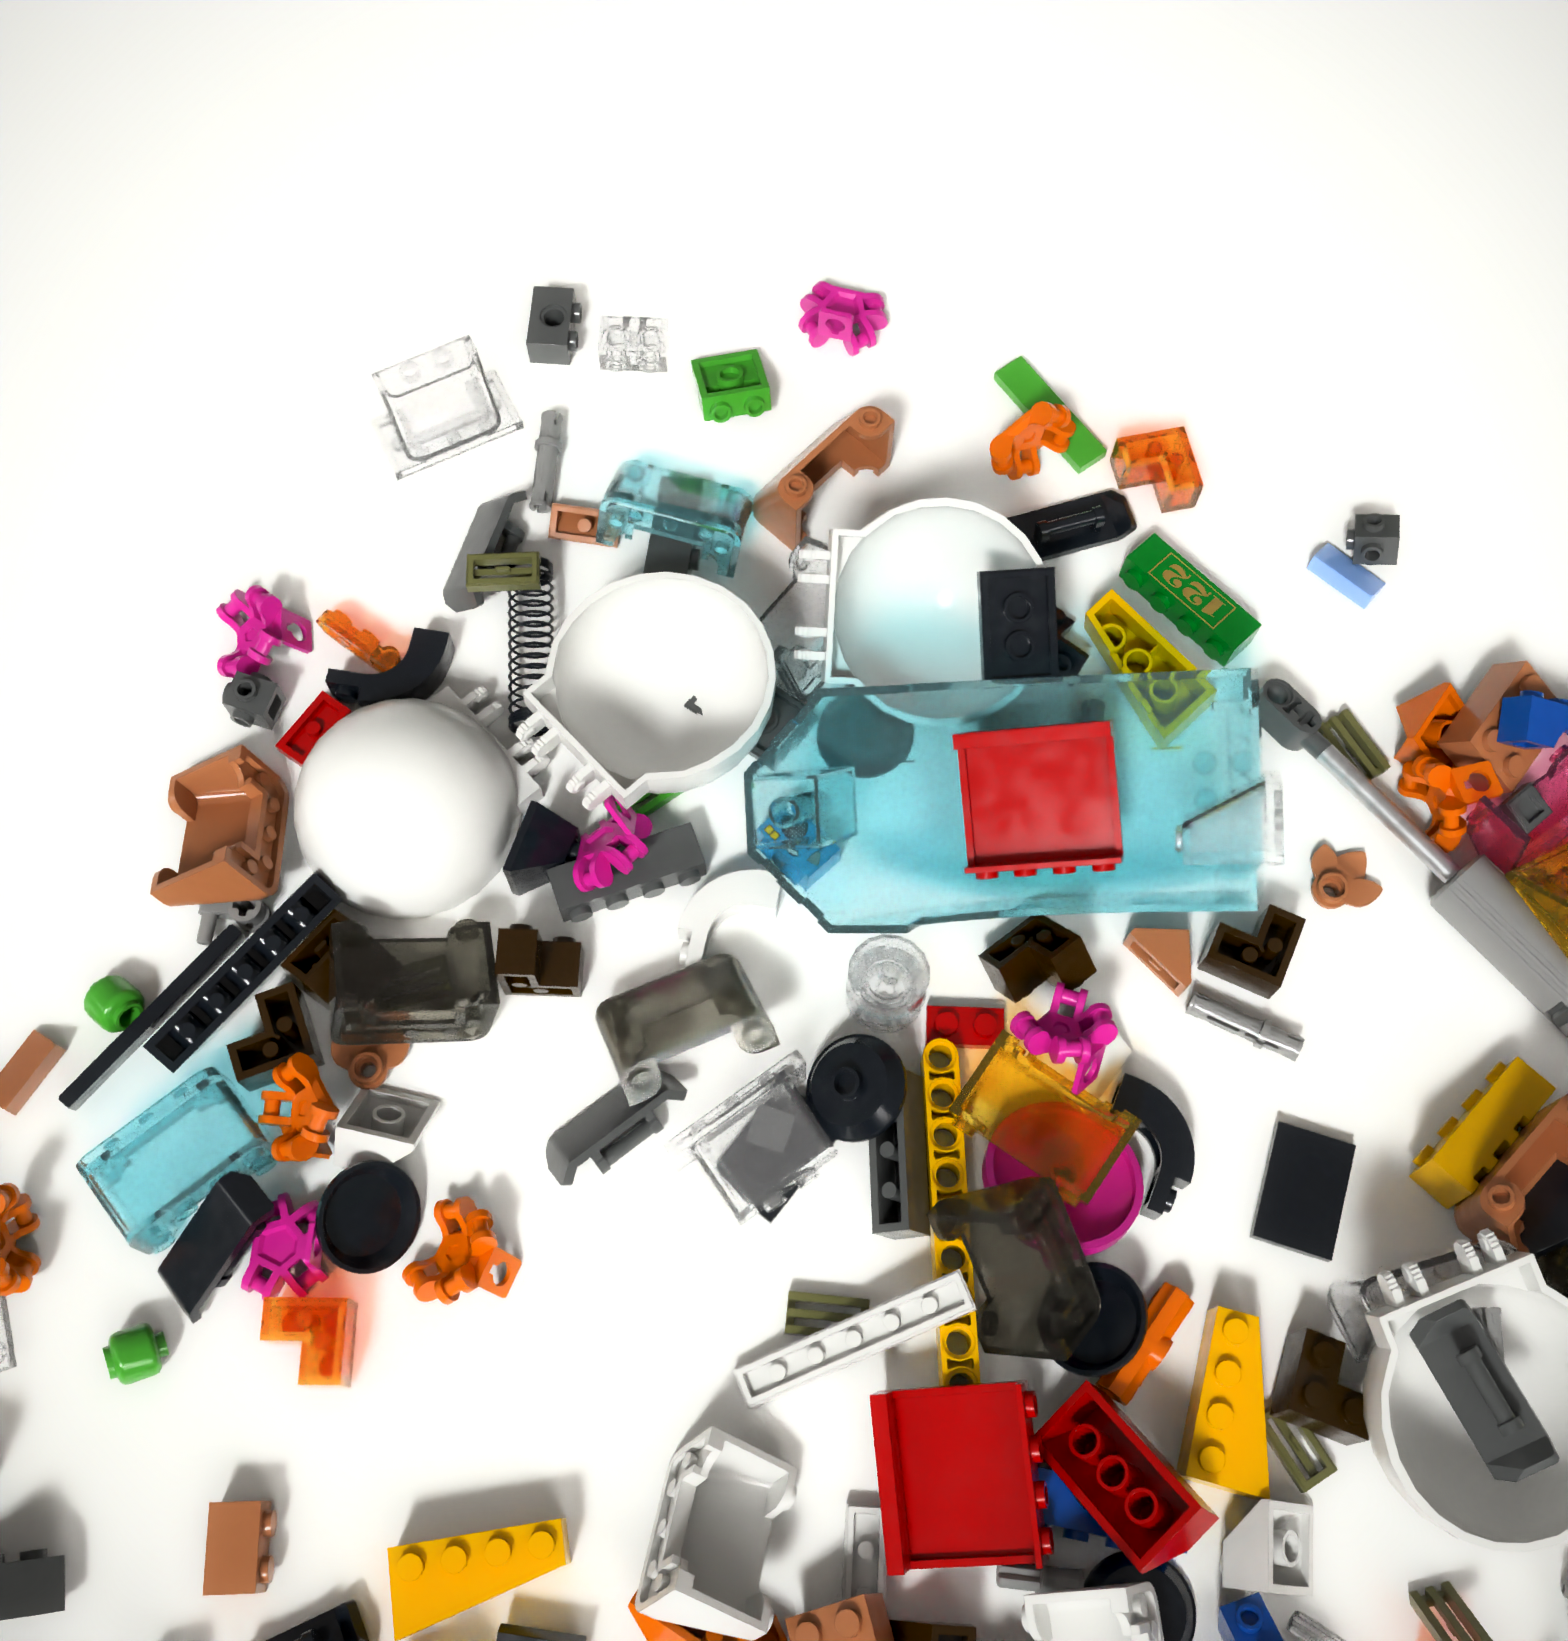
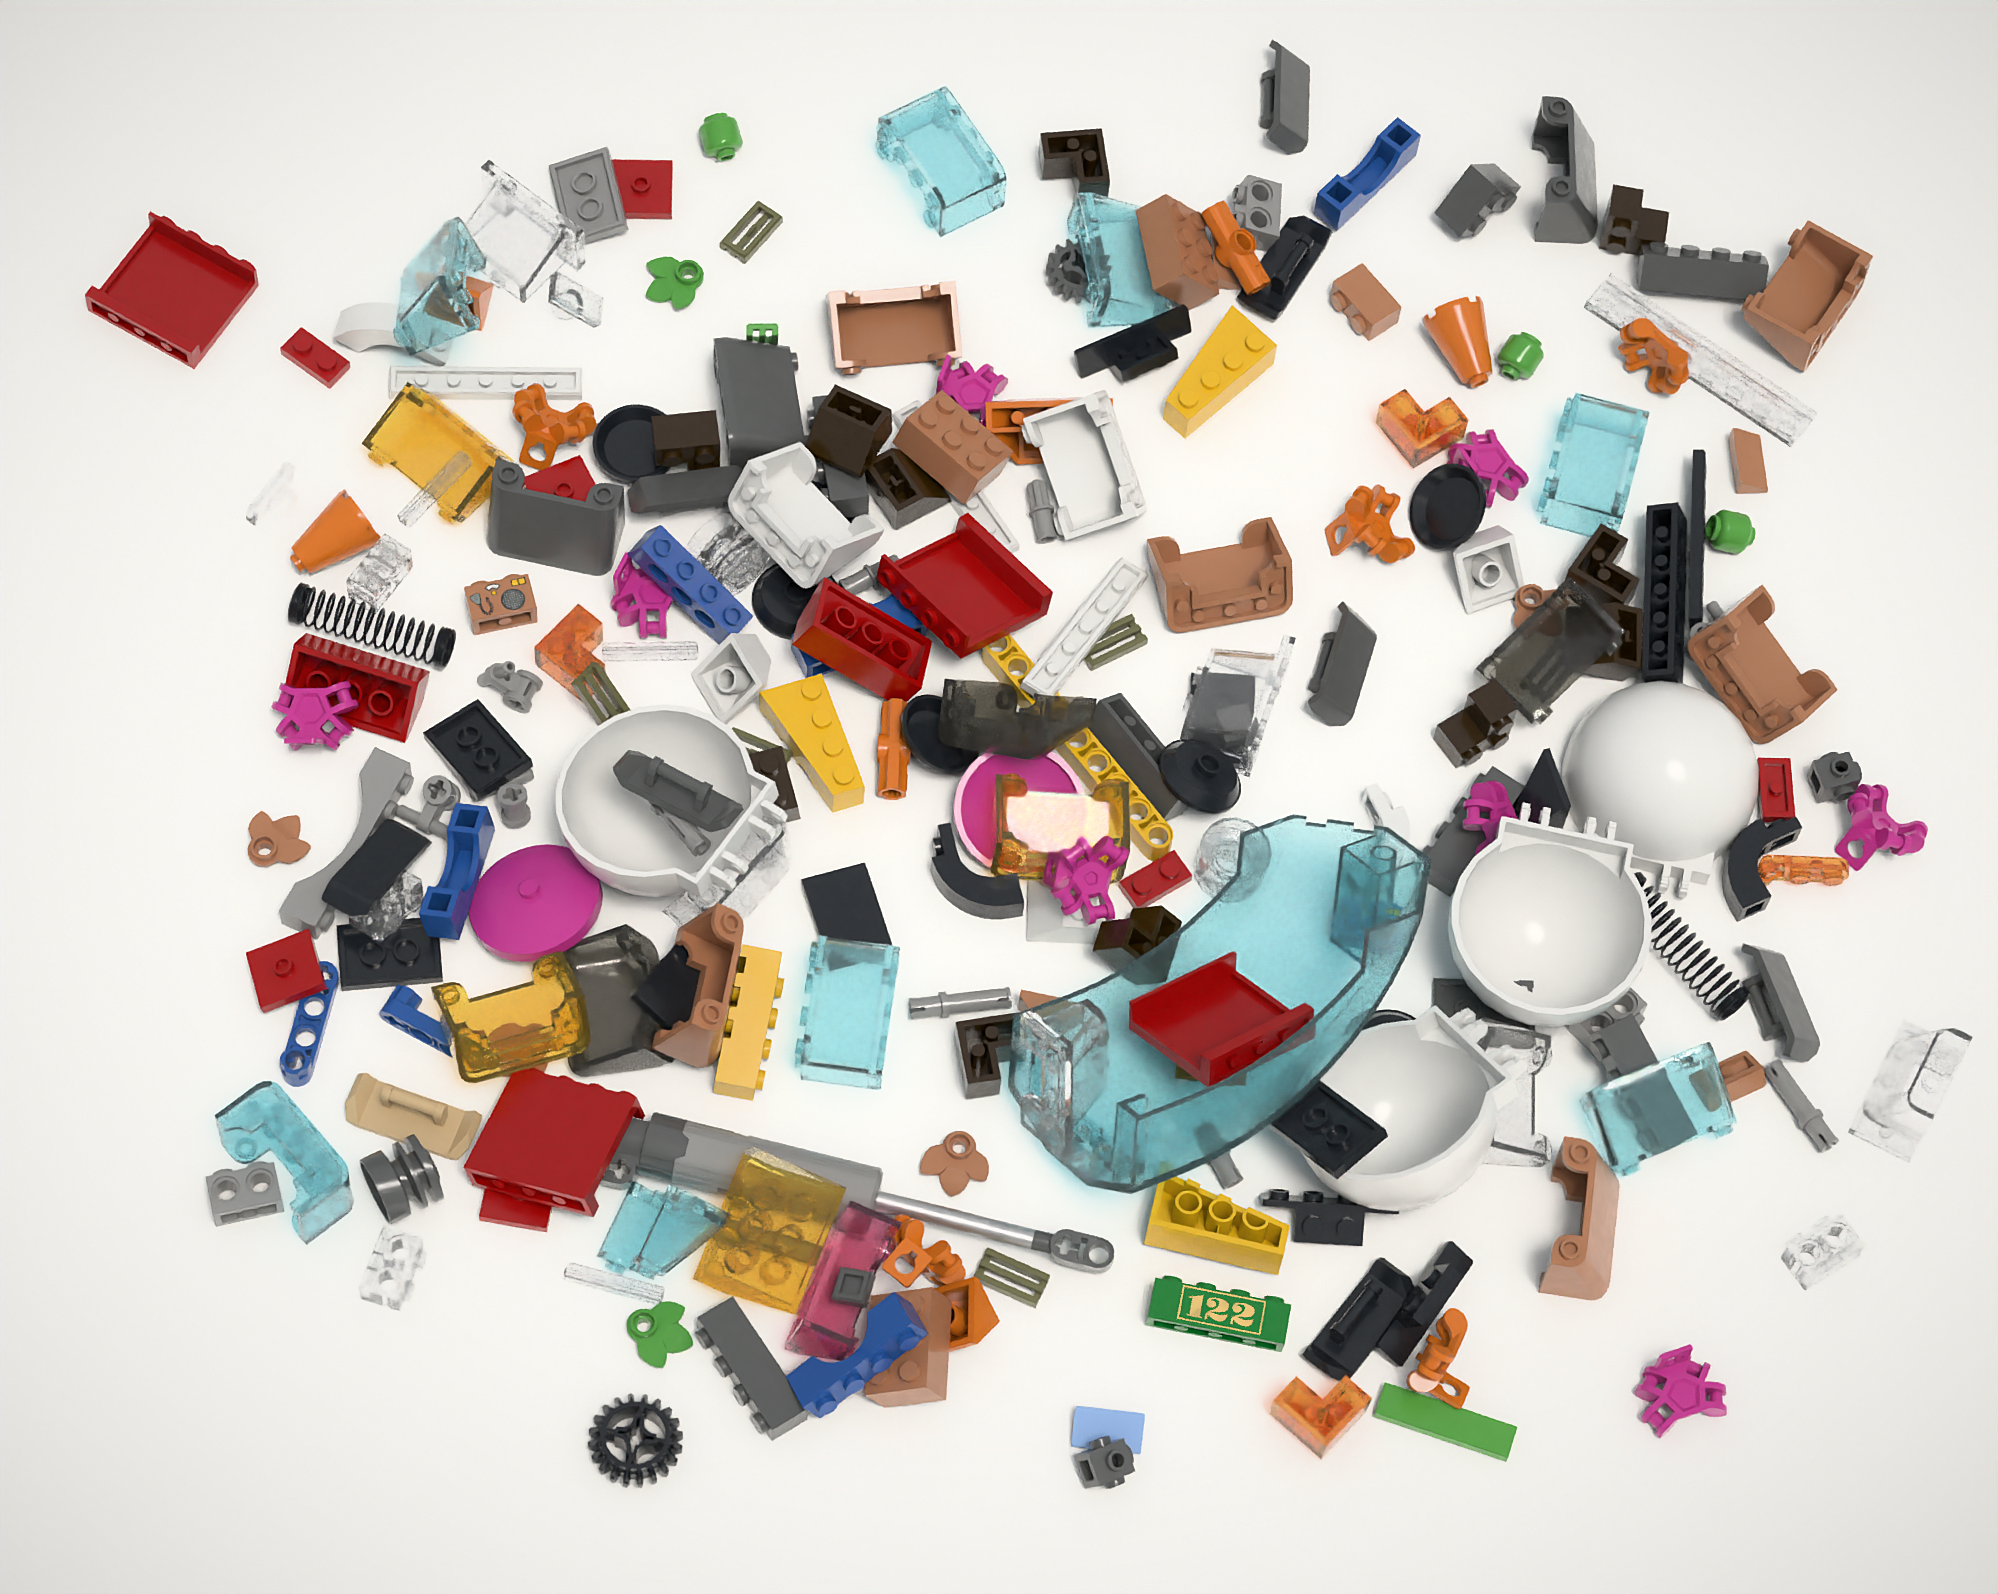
camera: 140 degrees right, 5 degrees down
(178, 1415) = (1463, 338): none -> orange cone
(215, 1241) = (1528, 432): black piece -> none
(311, 1109) = (1533, 530): orange piece -> none
(503, 577) = (1722, 984): olive tile -> none
(545, 340) = (1900, 1206): dark grey brick -> none
(660, 1308) = (1225, 581): none -> nougat windscreen
(679, 1015) = (1348, 741): clear smoke windscreen -> none
(731, 385) = (1716, 1264): bright green plate -> none
(794, 1530) = (1041, 511): none -> light grey axle
(1017, 491) = (1424, 1303): none -> black bracket
(1379, 1074) = (847, 1012): none -> clear light blue windscreen

